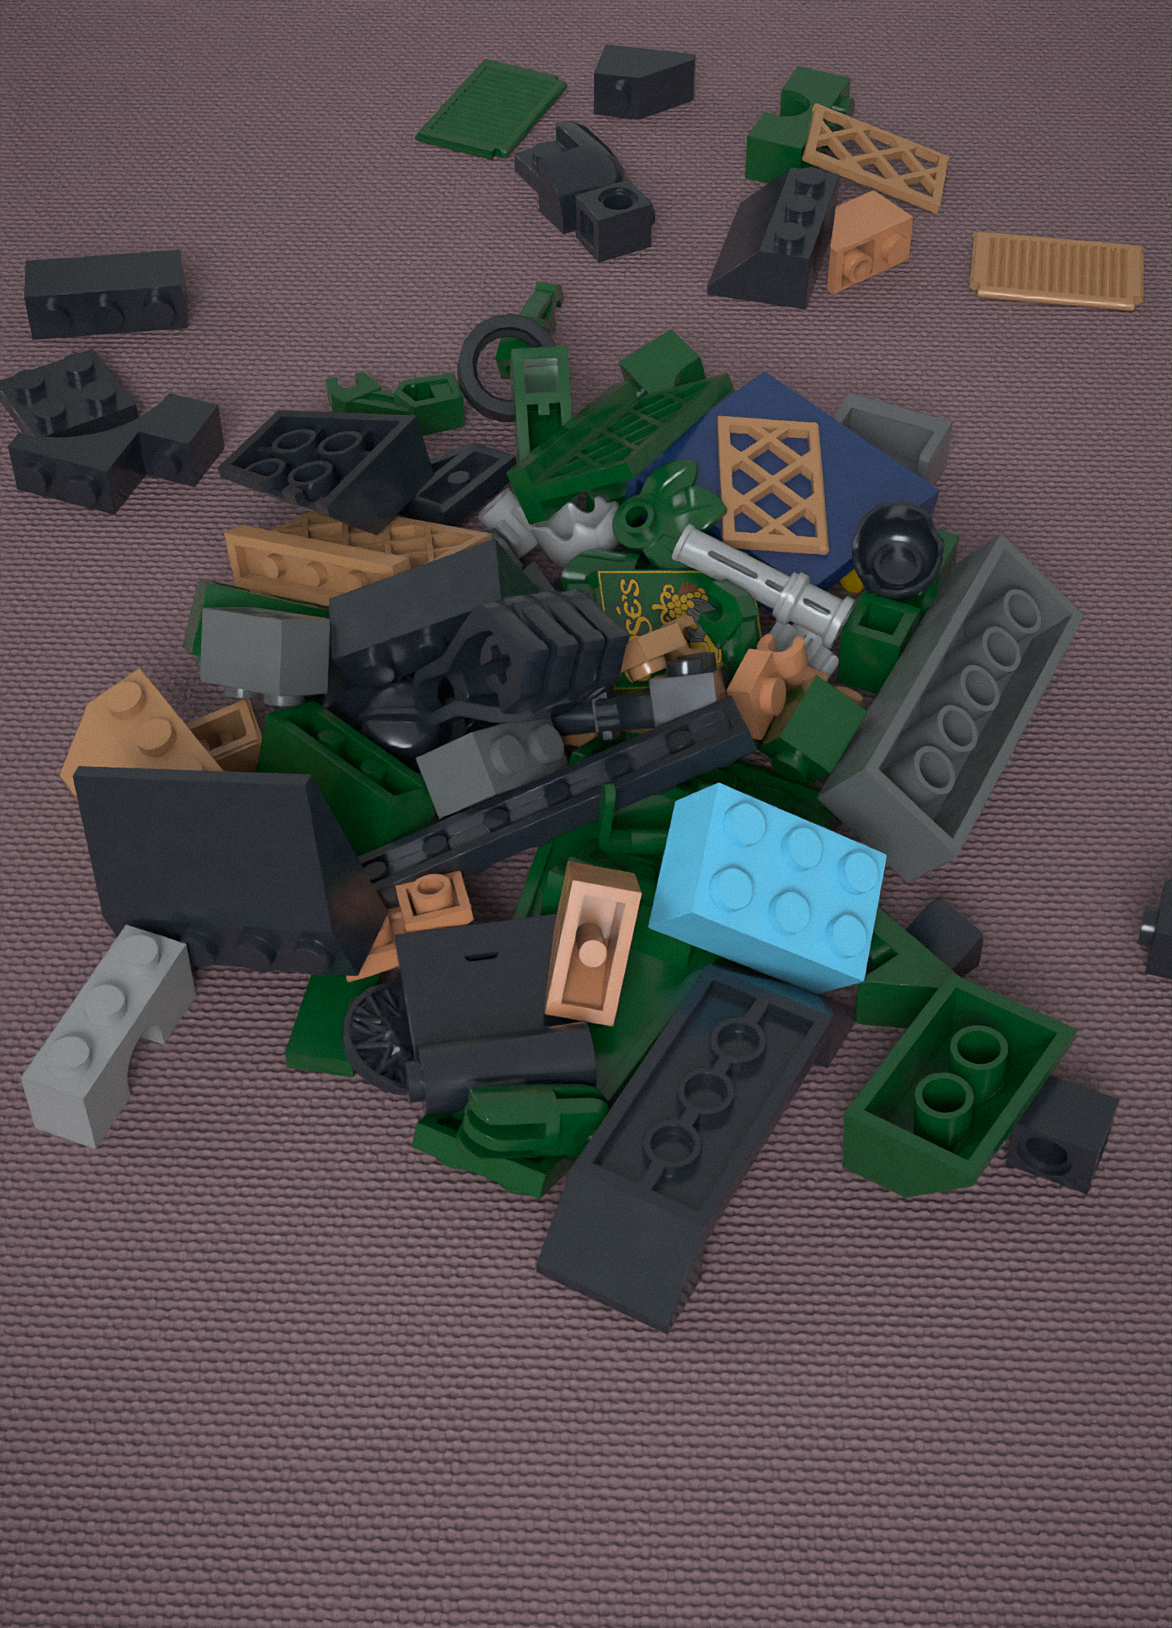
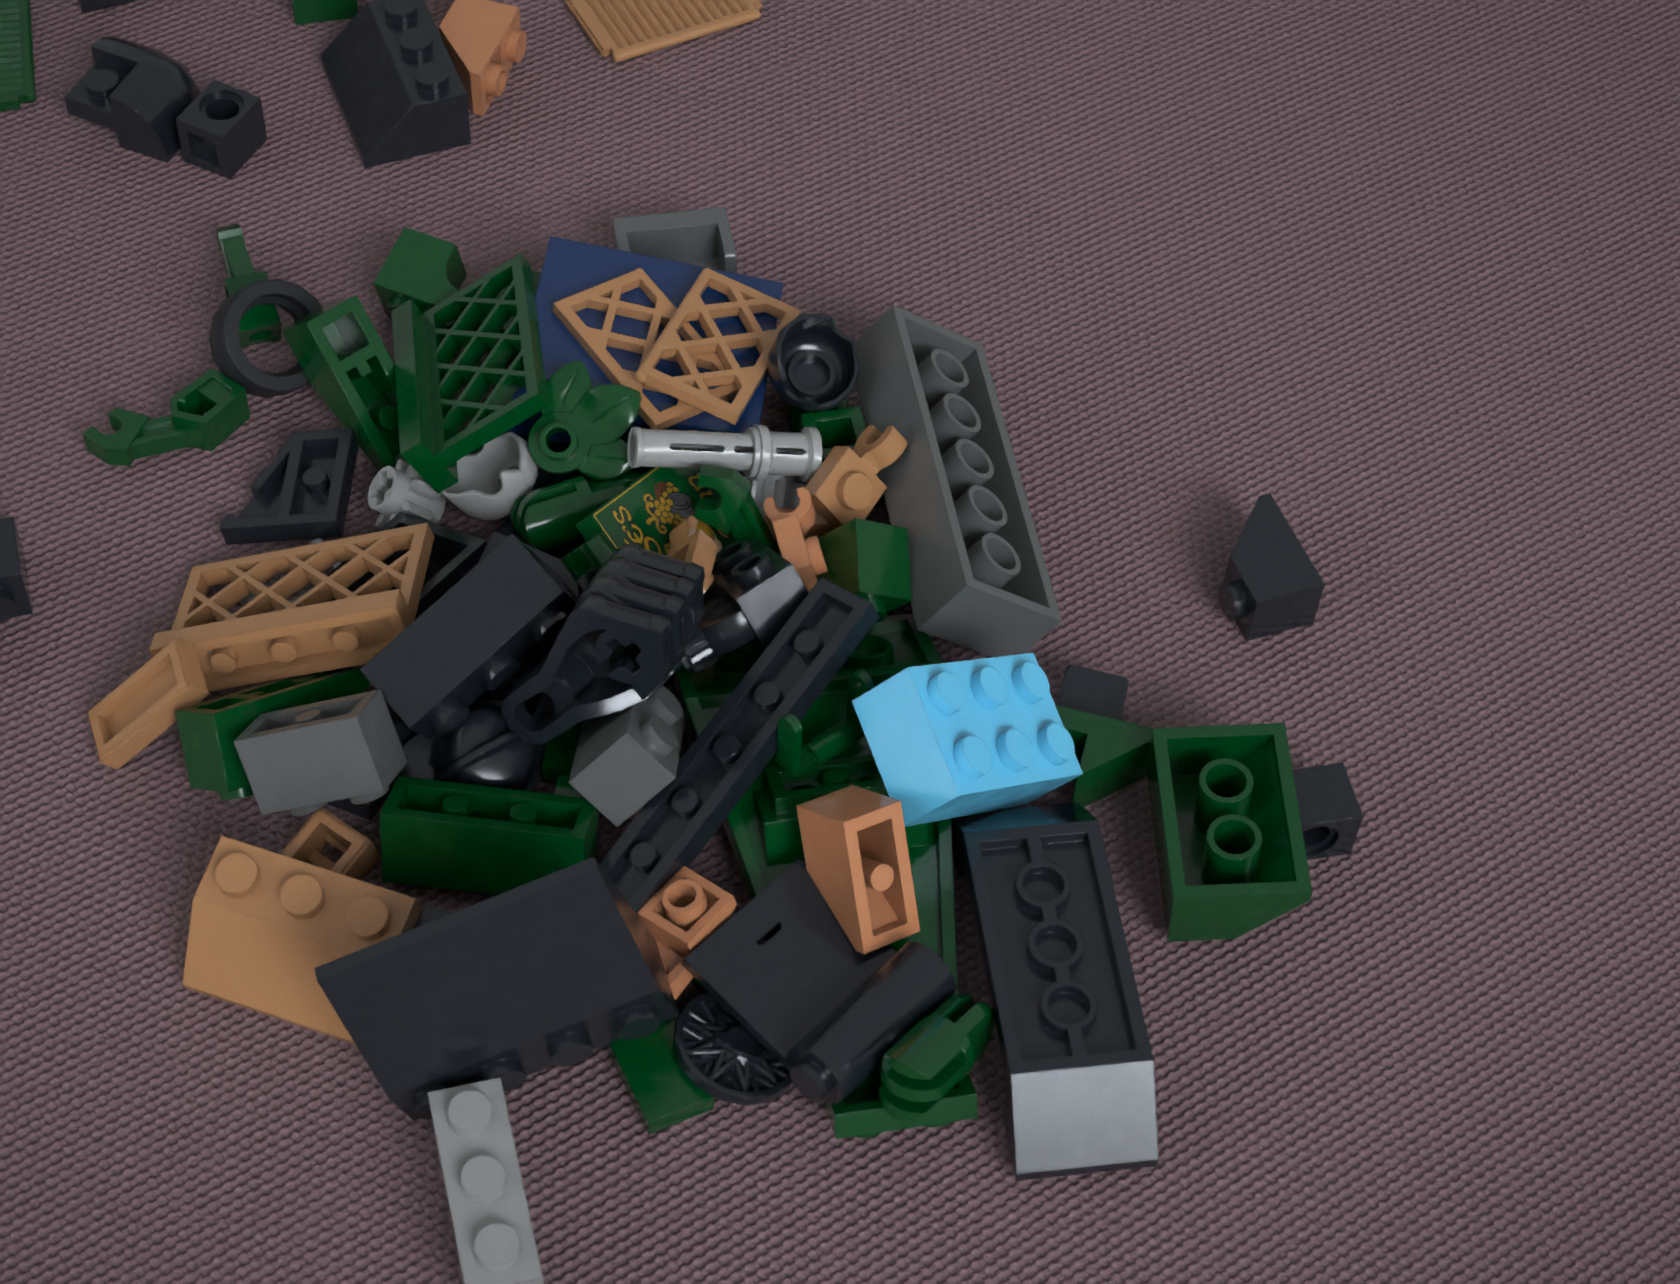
camera: 40 degrees left, 5 degrees up
(211, 560) = (147, 703): none -> medium nougat tile
(335, 464) = (201, 525): black wedge -> none
(831, 541) = (693, 385): none -> medium nougat window
(854, 658) = (847, 479): none -> medium nougat plate

